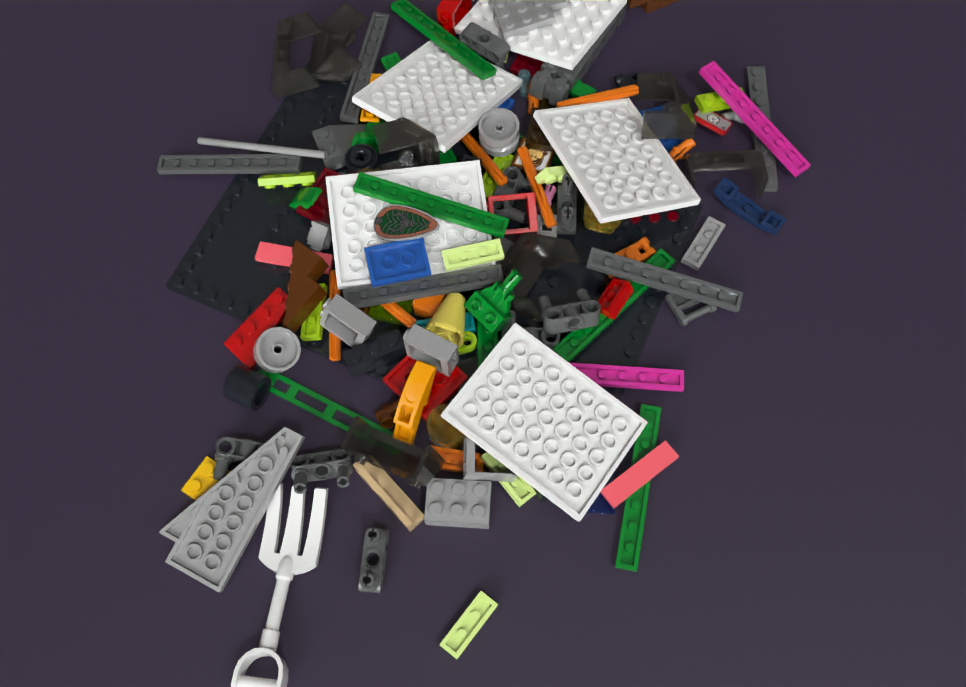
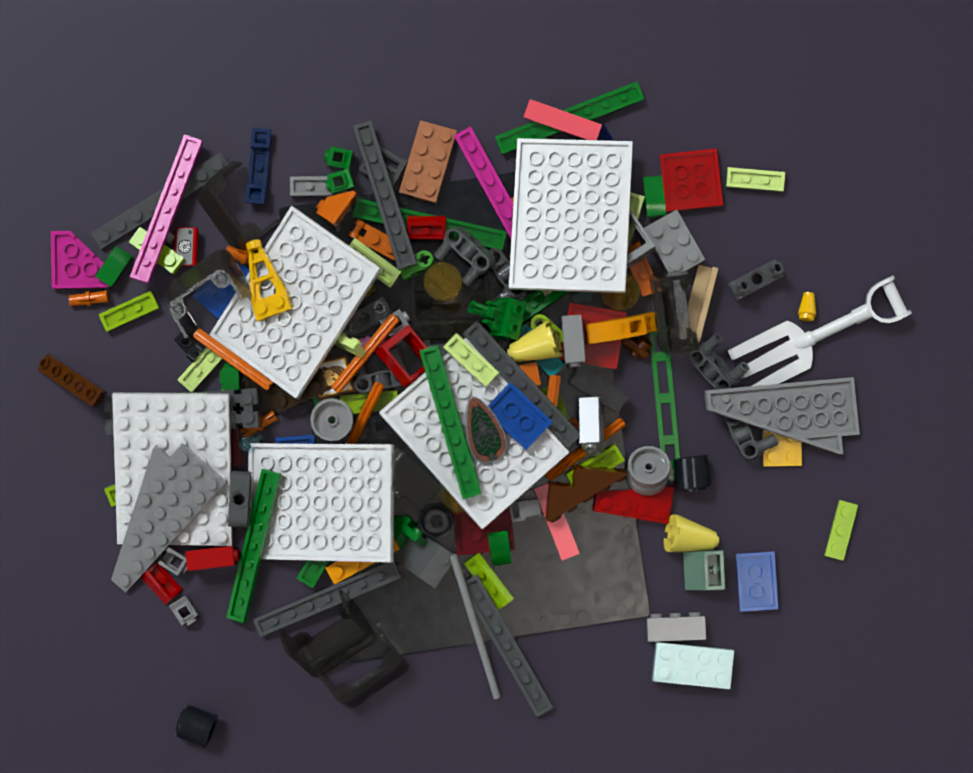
camera: 125 degrees left, 20 degrees up
(97, 290) = (692, 665): none -> light aqua brick
(100, 489) = (841, 530): none -> lime plate
(118, 386) = (756, 581): none -> plate
(137, 297) = (676, 627): none -> light grey brick
(160, 348) = (704, 570): none -> sand green slope
(197, 352) = (688, 536): none -> light yellow cone
(313, 592) = (807, 307): none -> yellow cone
(508, 561) = (691, 180): none -> red plate
(515, 516) = (654, 196): none -> green slope
(557, 282) = (442, 282): none -> clear yellow brick
(585, 277) = (420, 267): none -> bright green piece
(603, 76) = (199, 369): none -> yellowish green plate
(612, 241) = (388, 273): none -> yellowish green plate
(623, 145) = (271, 305): none -> yellow plate
(671, 338) = (427, 162): none -> nougat plate
(675, 237) = (336, 207): none -> orange slope
(684, 59) = (128, 311): none -> lime plate
(701, 247) = (348, 183): none -> green window
(711, 39) = (88, 298): none -> orange pin
(723, 264) = (346, 160): none -> green window
(727, 62) = (113, 266): none -> green slope
(745, 44) = (73, 263): none -> dark pink plate

